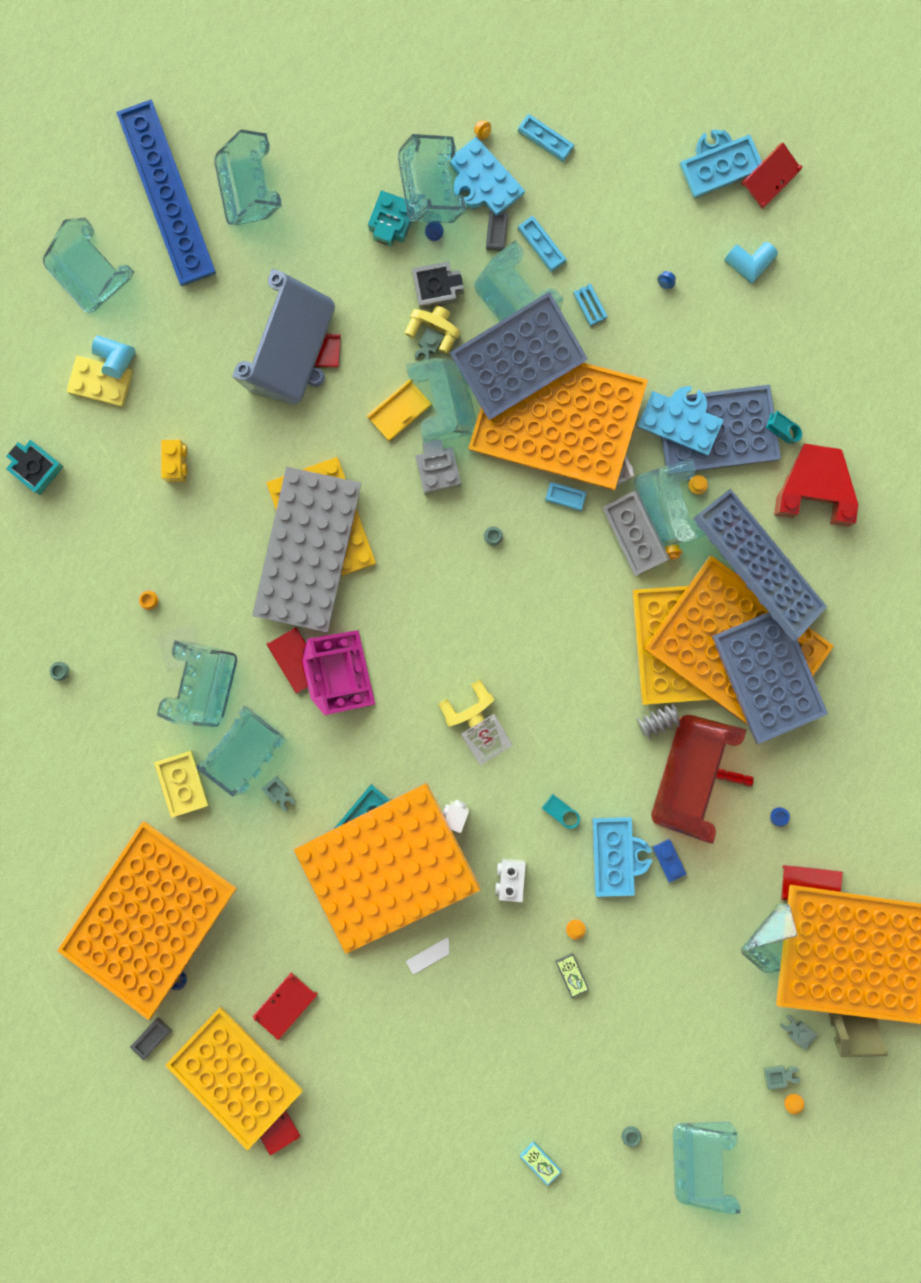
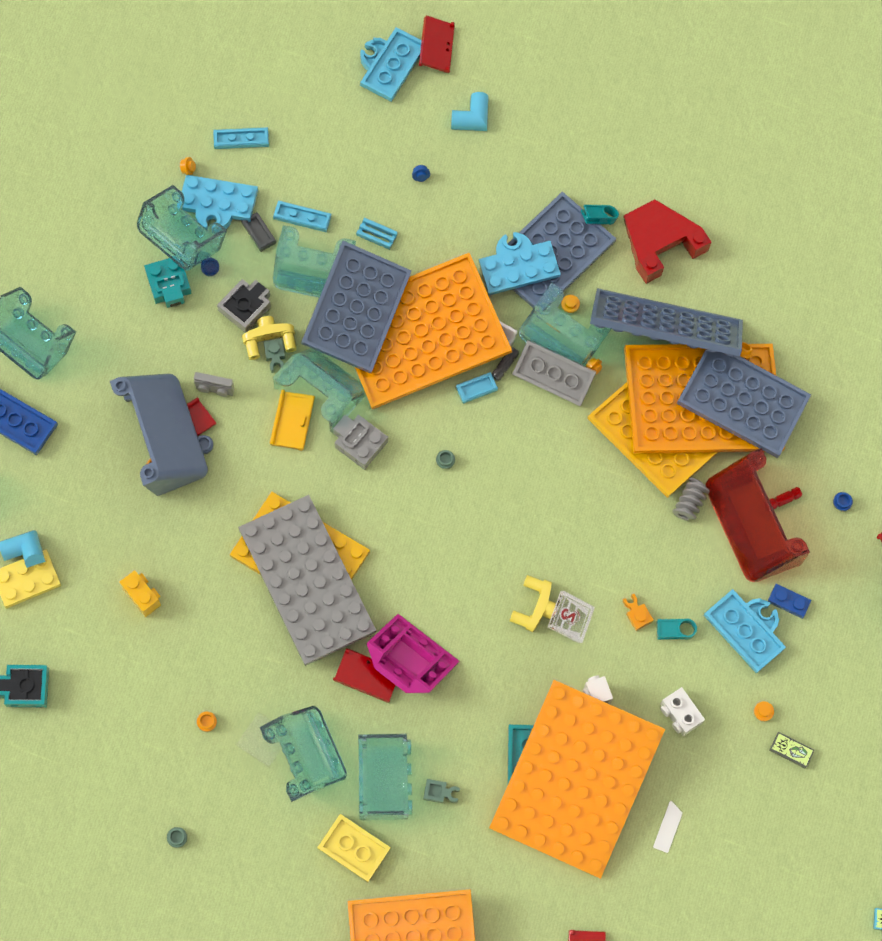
camera: 45 degrees left, 15 degrees down
(354, 329) = (216, 384): none -> light grey plate
(542, 778) = (639, 615): none -> light orange plate
(603, 494) = (504, 364): none -> dark grey axle

